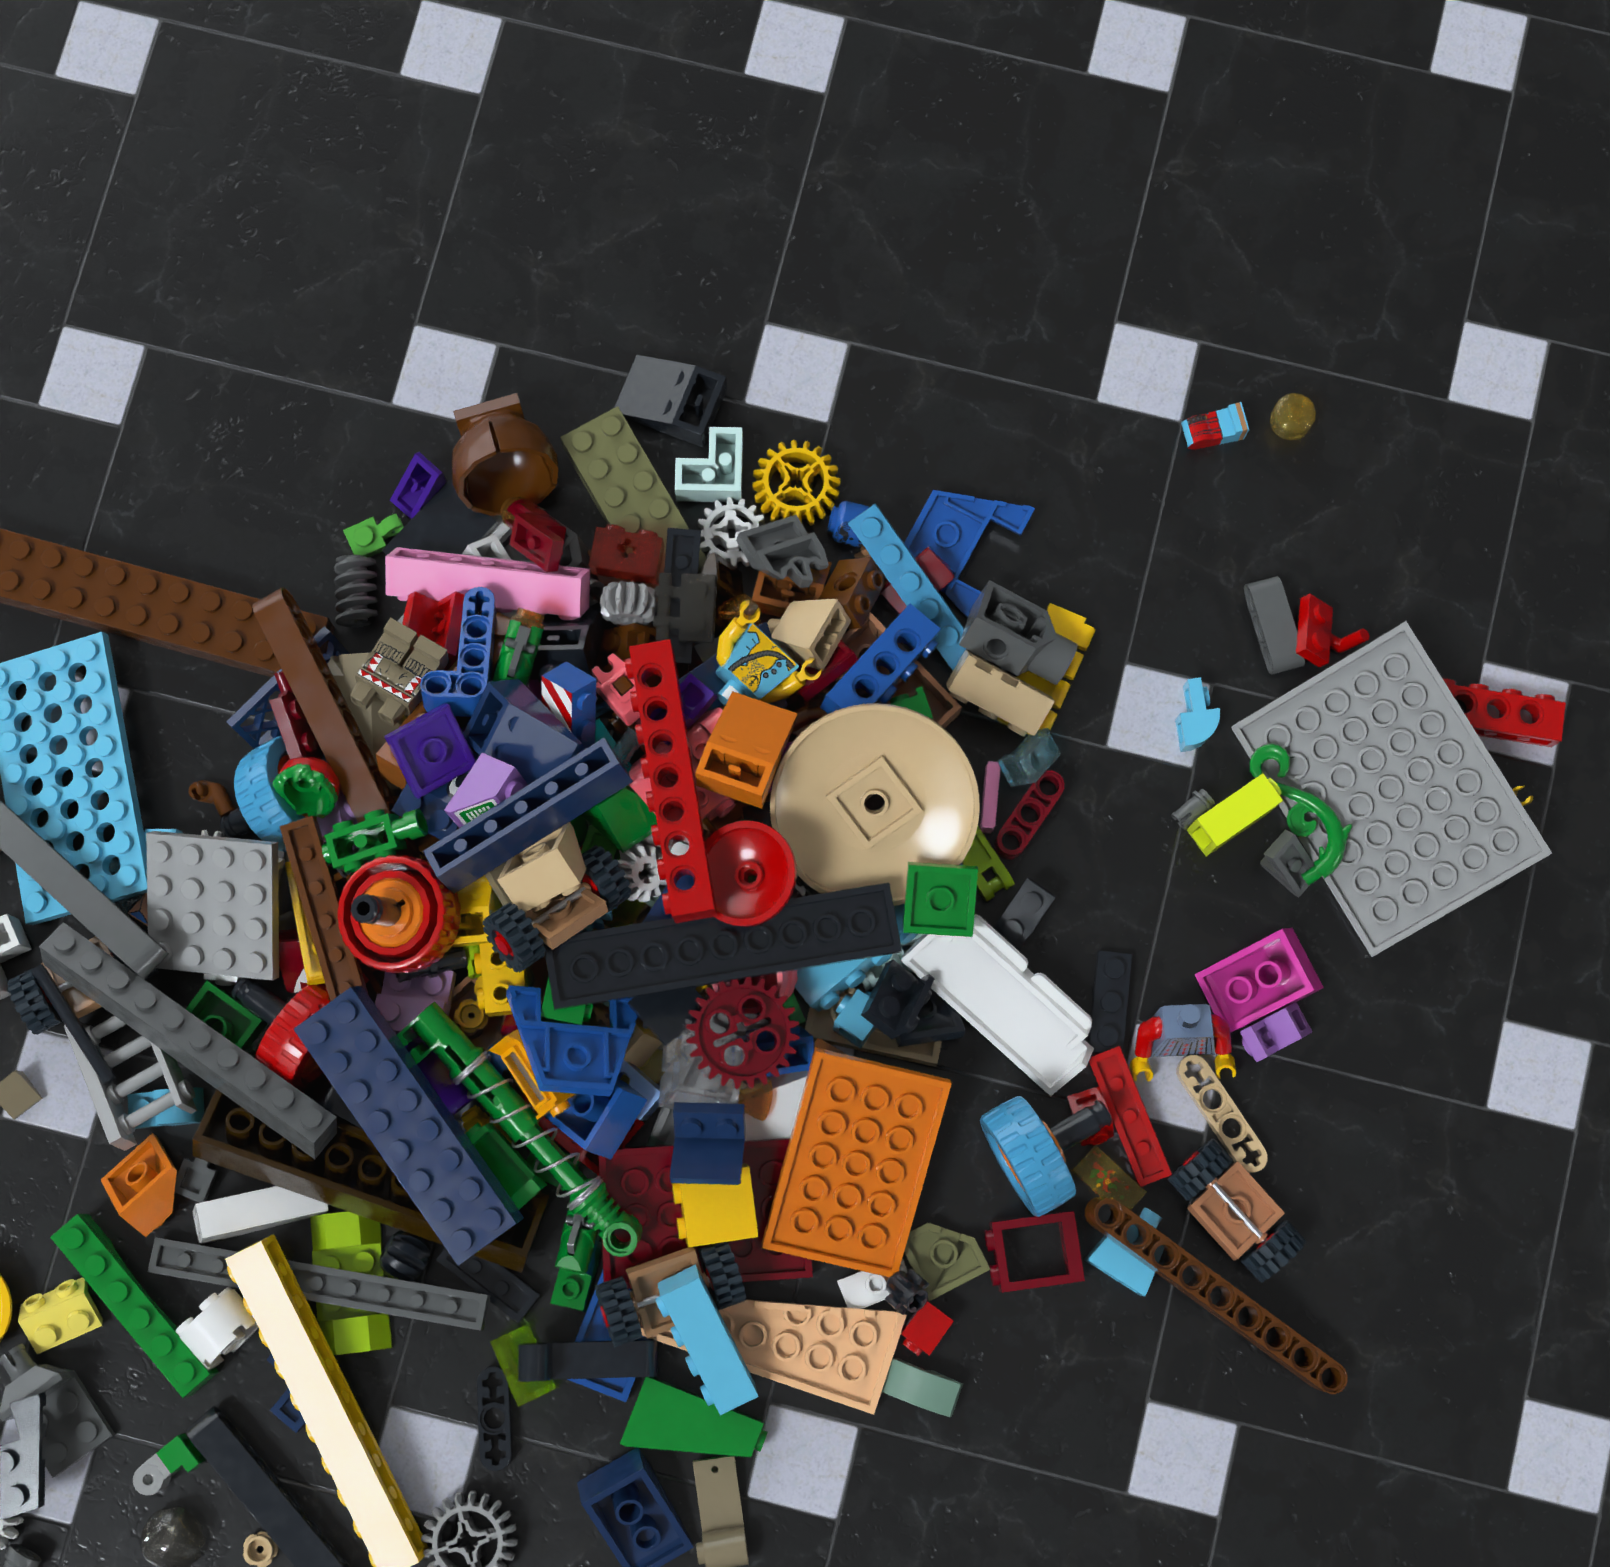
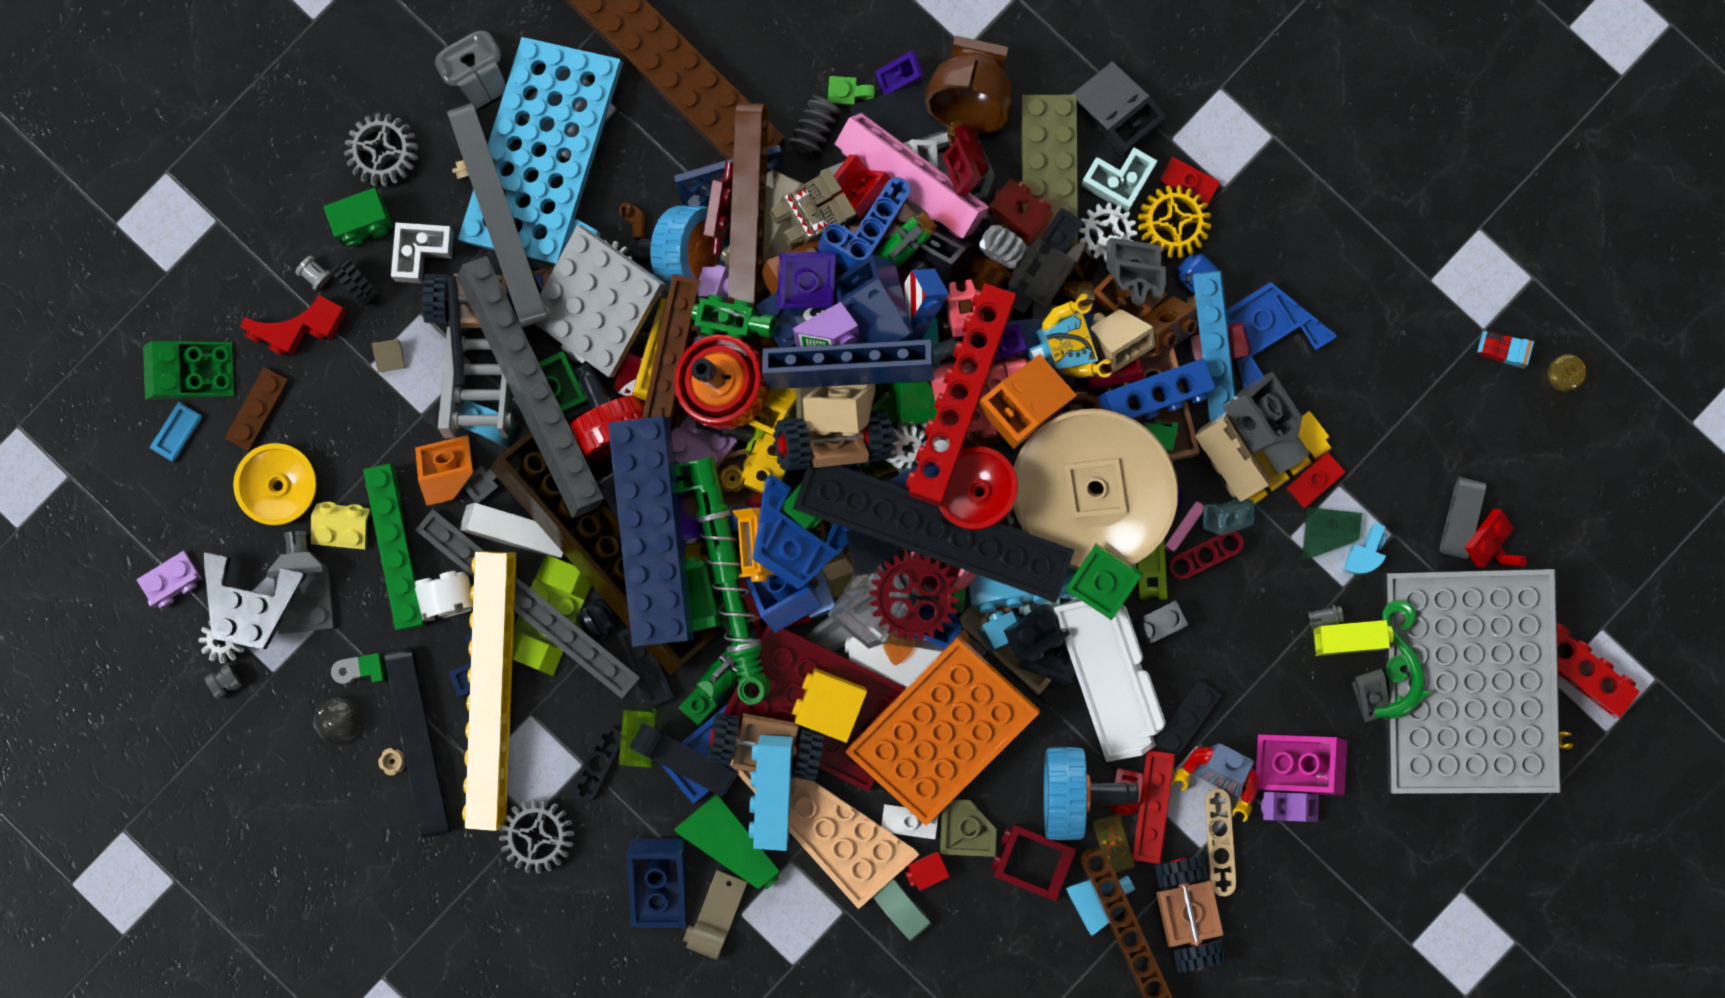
camera: 35 degrees right, 5 degrees up
(308, 786) = (707, 256): green hair -> none
(708, 1143) = (847, 659): dark blue bracket -> none
(776, 430) = (1188, 177): none -> red plate
(907, 1291) = (928, 838): black gear -> none
(1098, 671) = (1315, 480): none -> red plate
(1143, 716) = (1328, 530): none -> clear green wing

